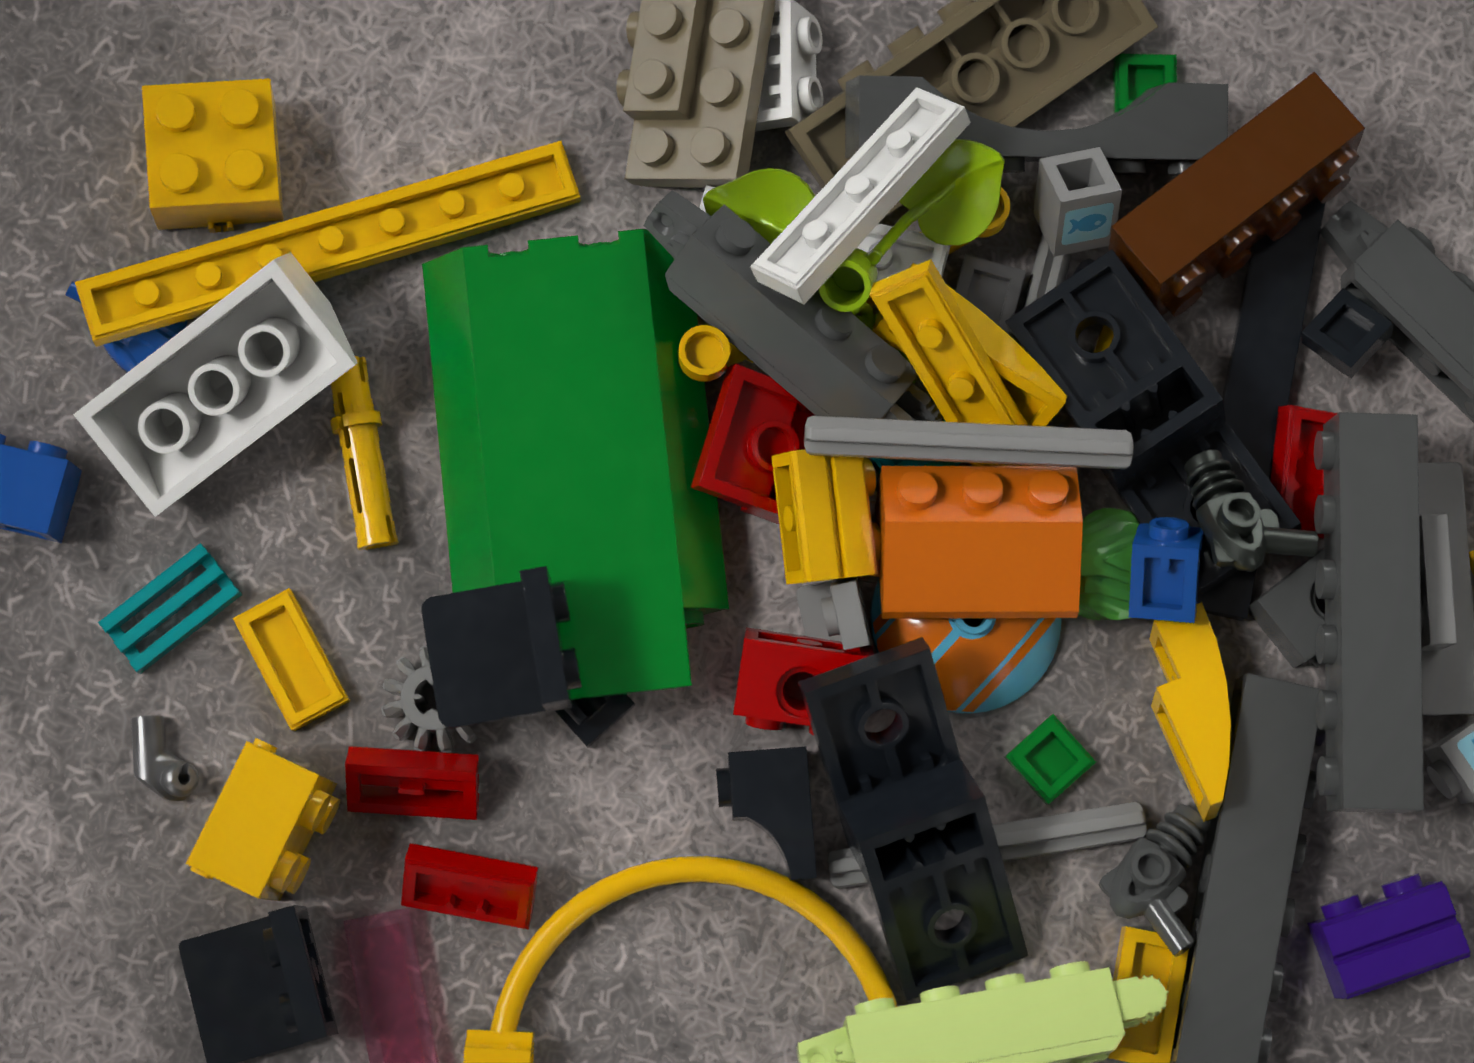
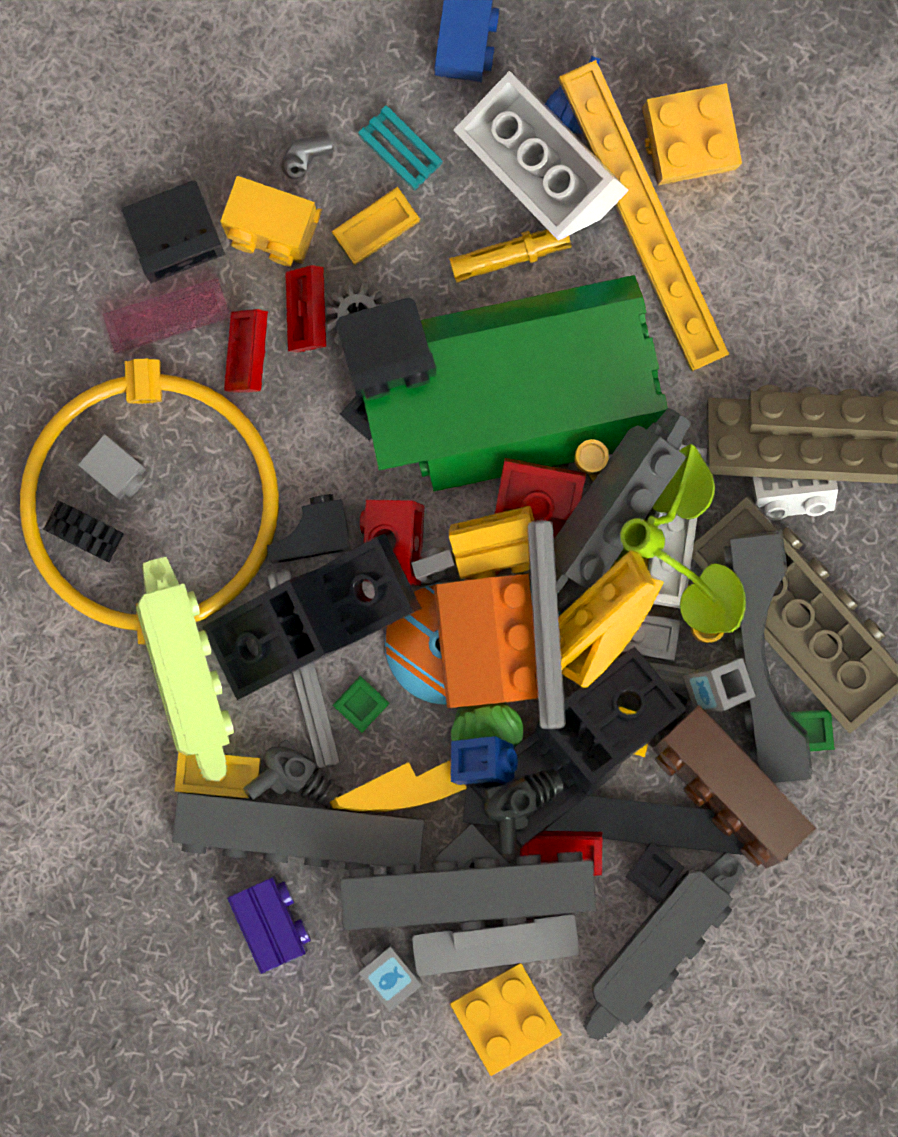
camera: 85 degrees right, 5 degrees up
(860, 195) = (697, 540): white tile -> none

